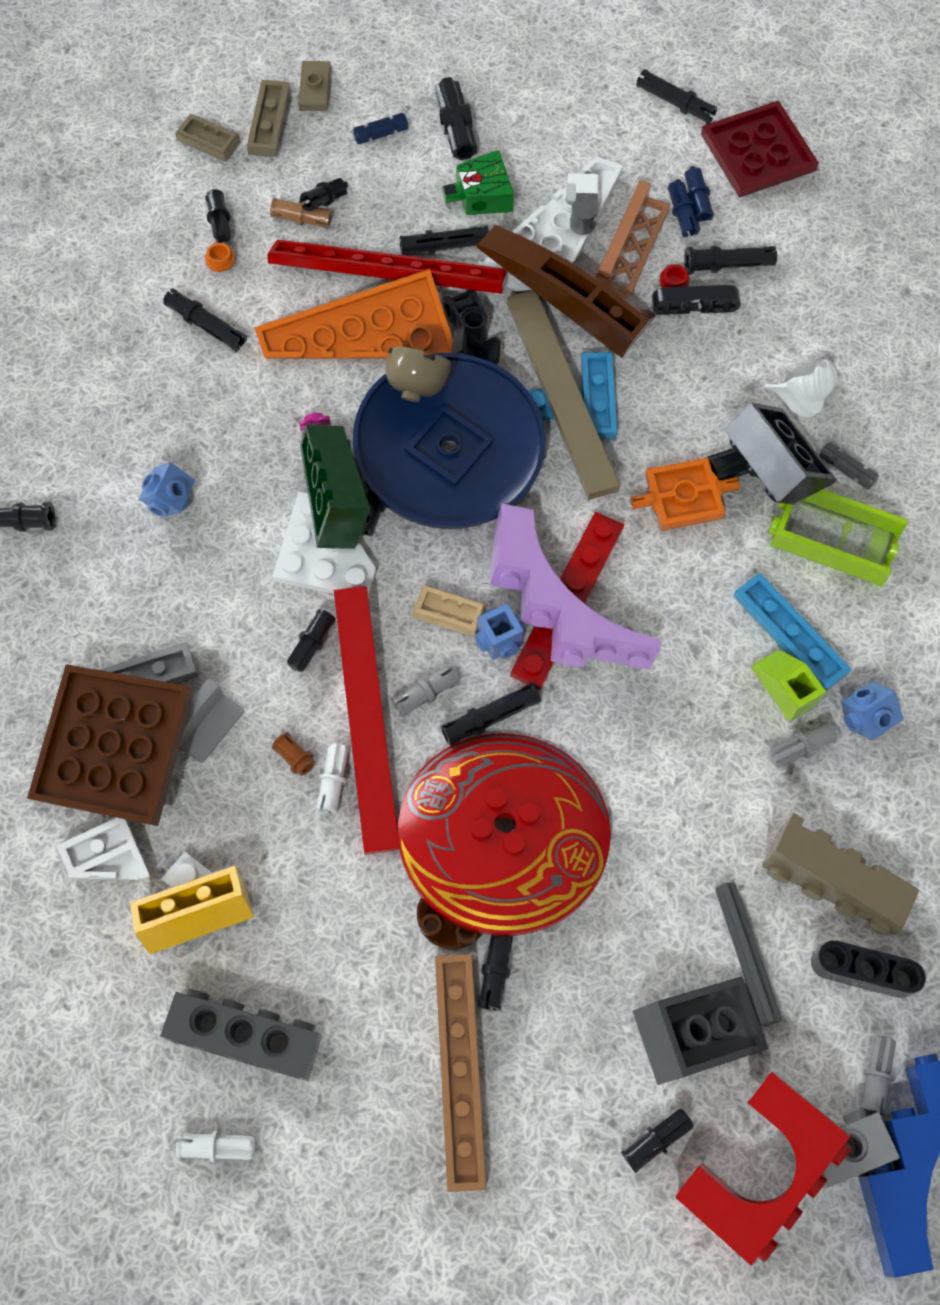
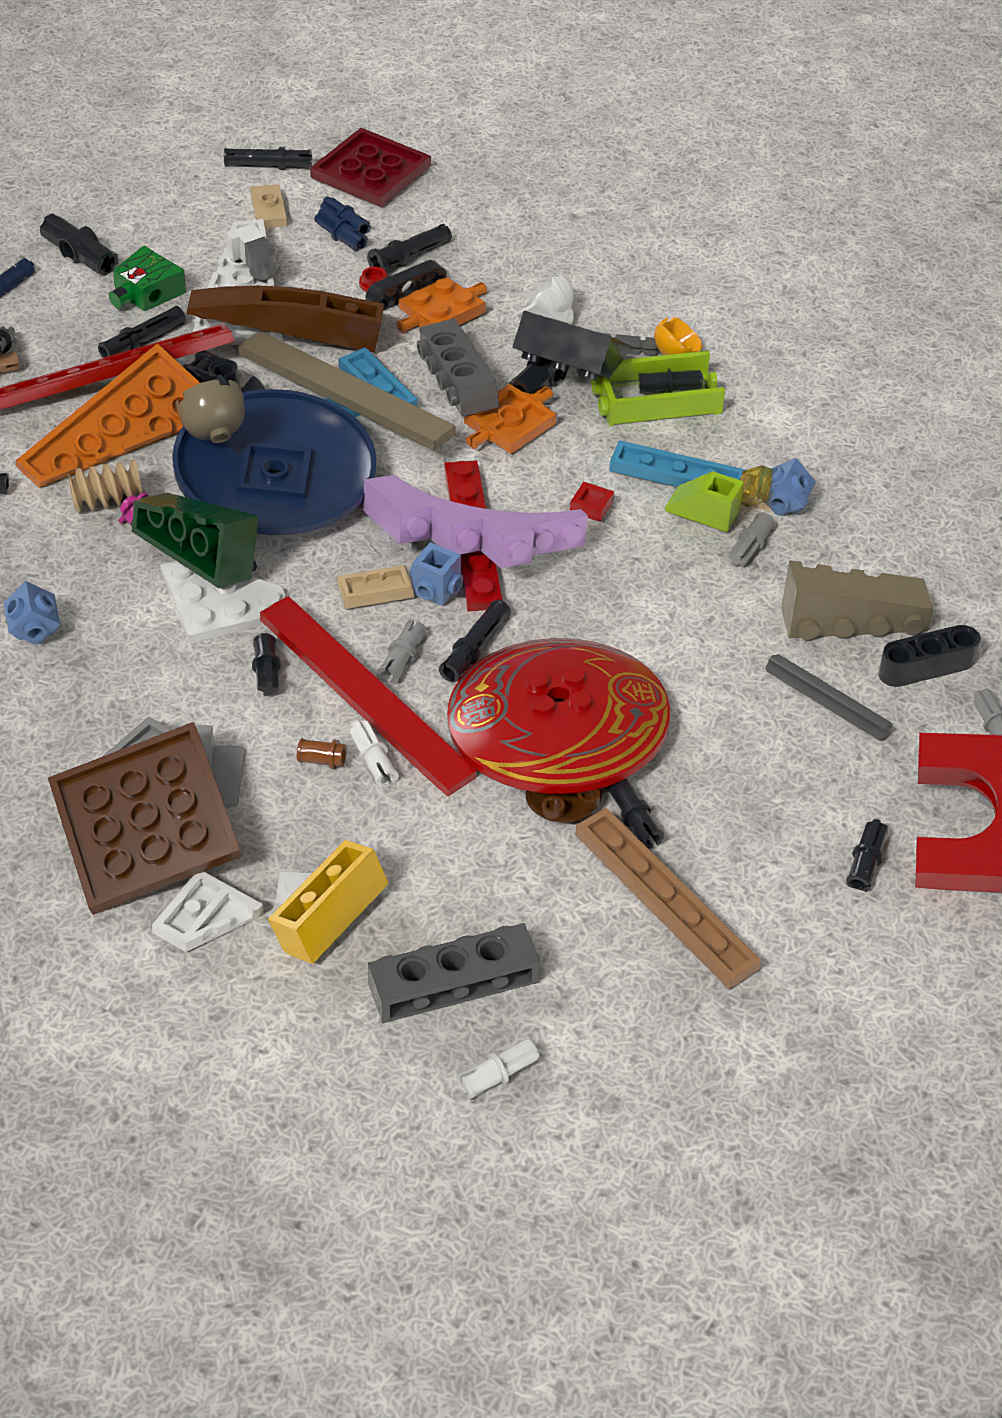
camera: 35 degrees left, 20 degrees down
(304, 391) = (104, 485): none -> tan piece
(624, 235) = (305, 256): nougat fence -> none
(642, 150) = (268, 205): none -> tan plate
(671, 419) = (457, 367): none -> dark grey brick
(691, 623) = (592, 500): none -> red plate
(699, 1030) = (833, 764): dark grey slope -> none
(714, 337) = (440, 303): none -> orange plate
(840, 695) = (756, 485): none -> clear yellow plate
(852, 532) = (670, 381): none -> black axle
(893, 488) = (676, 337): none -> light orange hair

